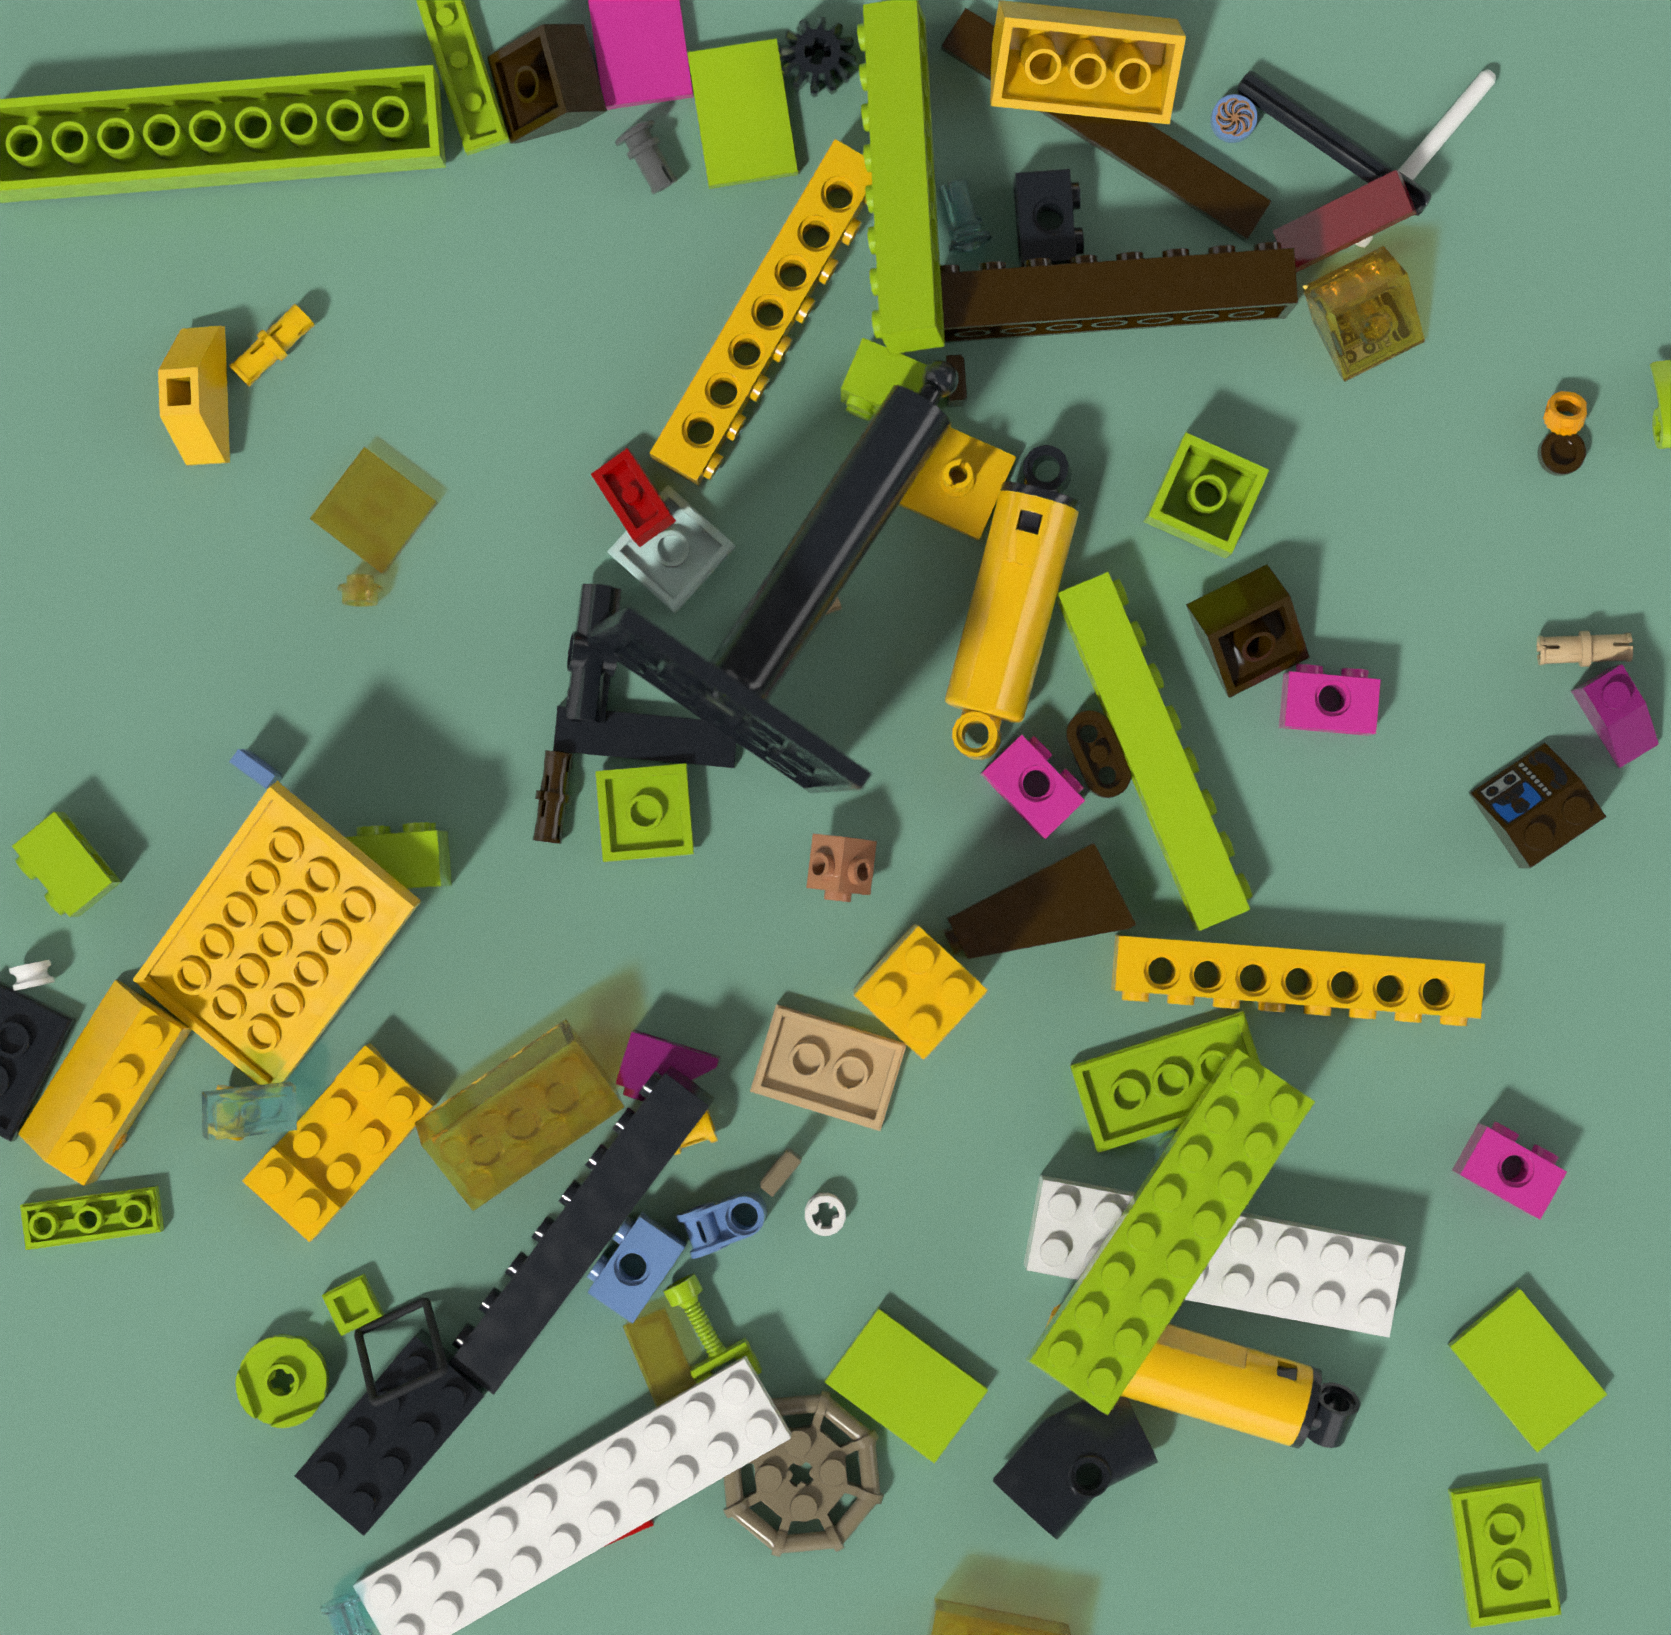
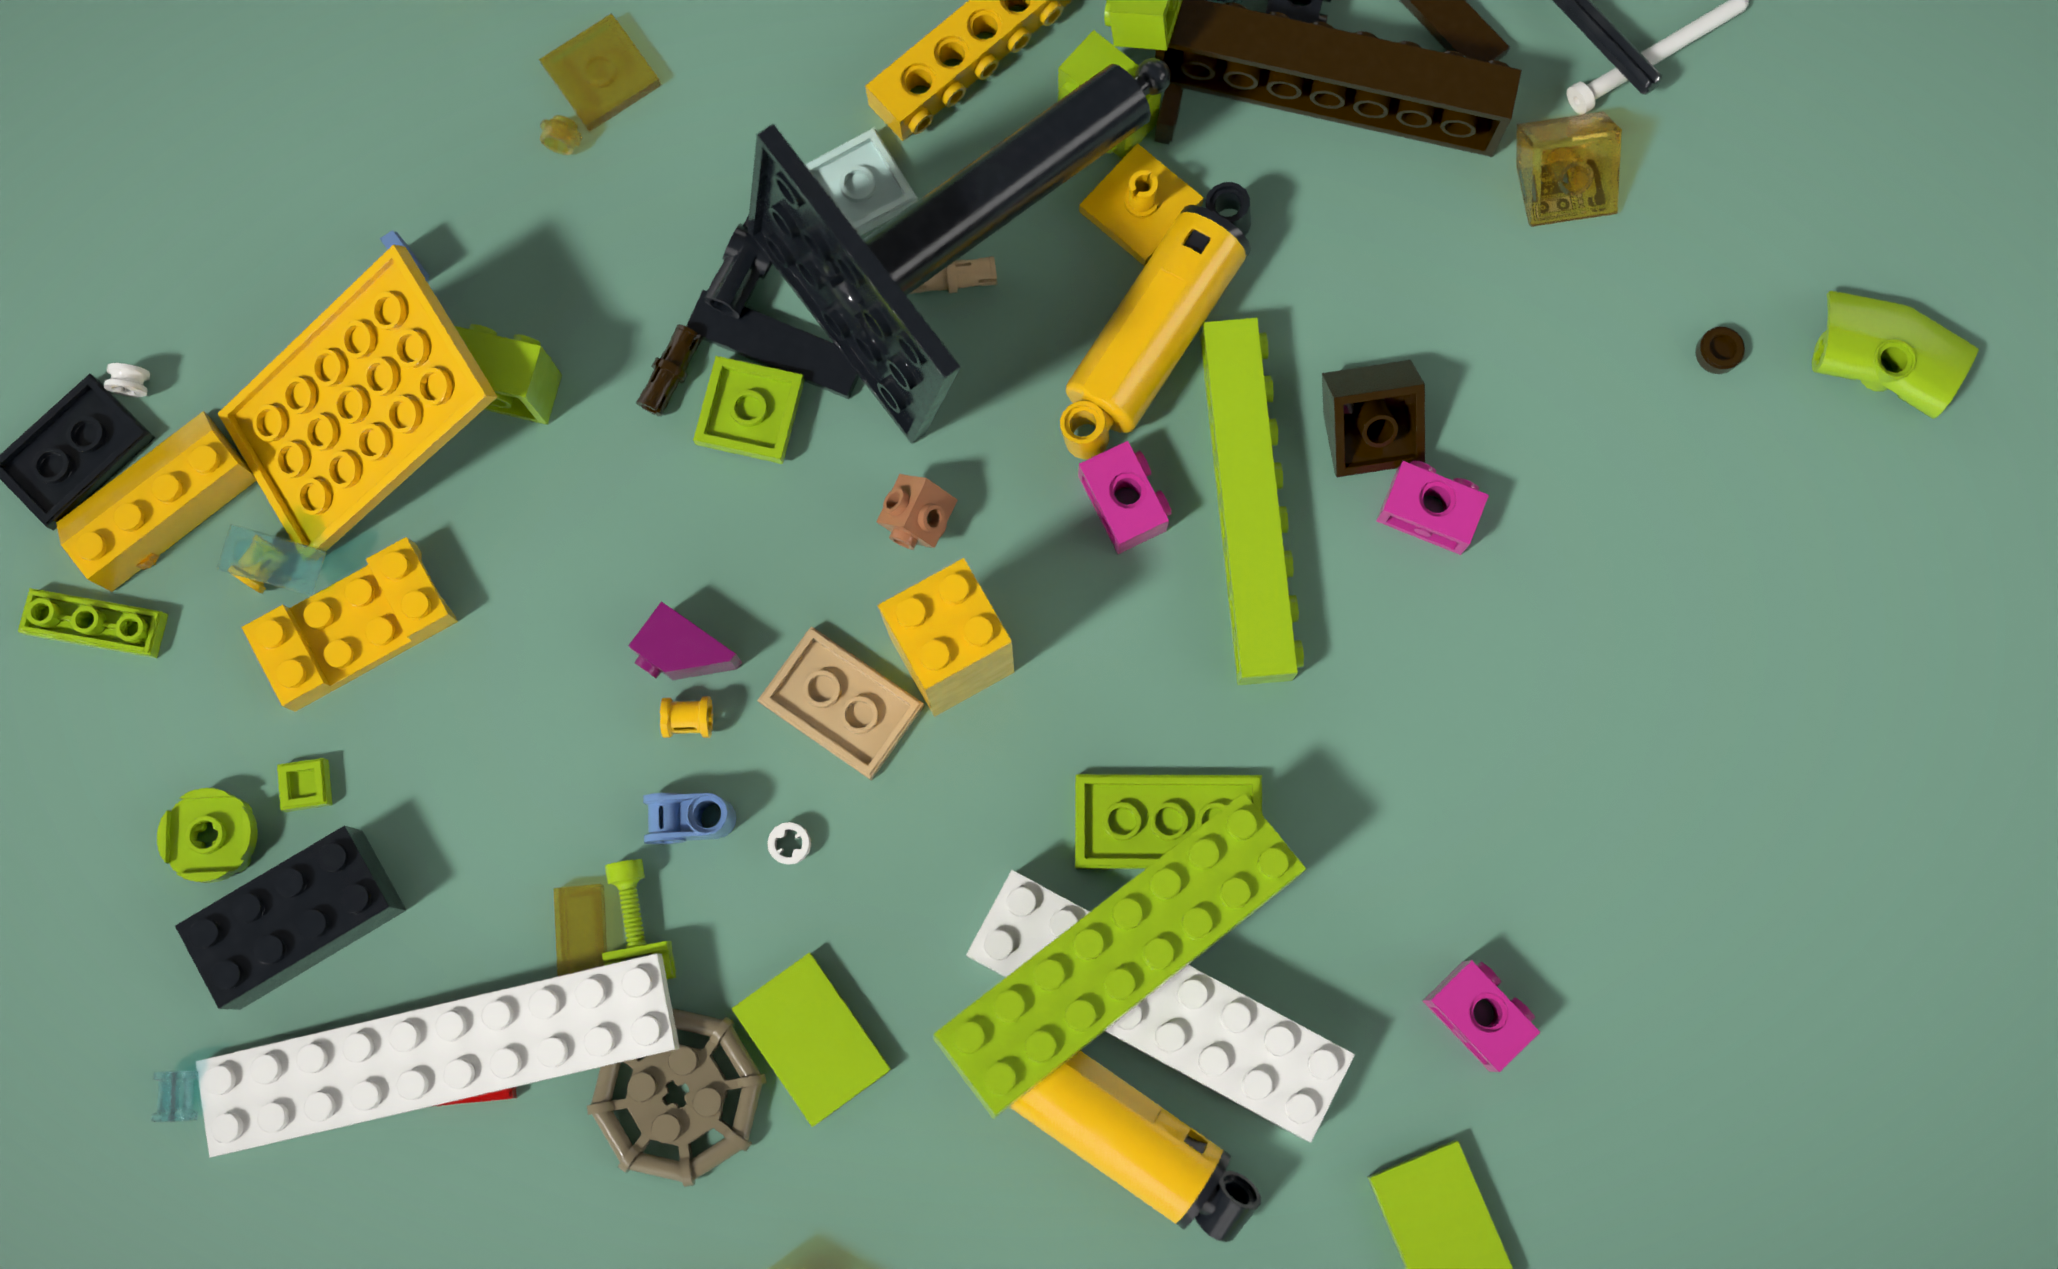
camera: 20 degrees right, 10 degrees down
(65, 865) = (197, 290): lime brick -> none
(376, 1400) = (280, 872): black piece -> none
(519, 1115) = (525, 647): clear yellow brick -> none
(582, 1229) = (542, 775): black brick -> none
(629, 1293) = (614, 825): medium blue brick -> none
(633, 497) = (837, 124): red plate -> none
(780, 1171) = (758, 785): dark tan tile -> none
(1044, 1468) = (918, 1168): black panel -> none
(1047, 907) = (1096, 613): dark brown slope -> none
(1100, 753) = (1195, 489): dark brown plate -> none
(1206, 495) = (1370, 279): lime brick -> none
(1347, 220) = (1579, 77): dark red tile -> none
(1460, 980) = (1483, 807): yellow brick -> none
(1537, 806) = (1608, 667): dark brown slope -> none
(1561, 423) = (1734, 312): light orange axle -> none
(1584, 648) = (1694, 534): tan pin -> none
(1617, 714) = (1710, 603): magenta slope -> none

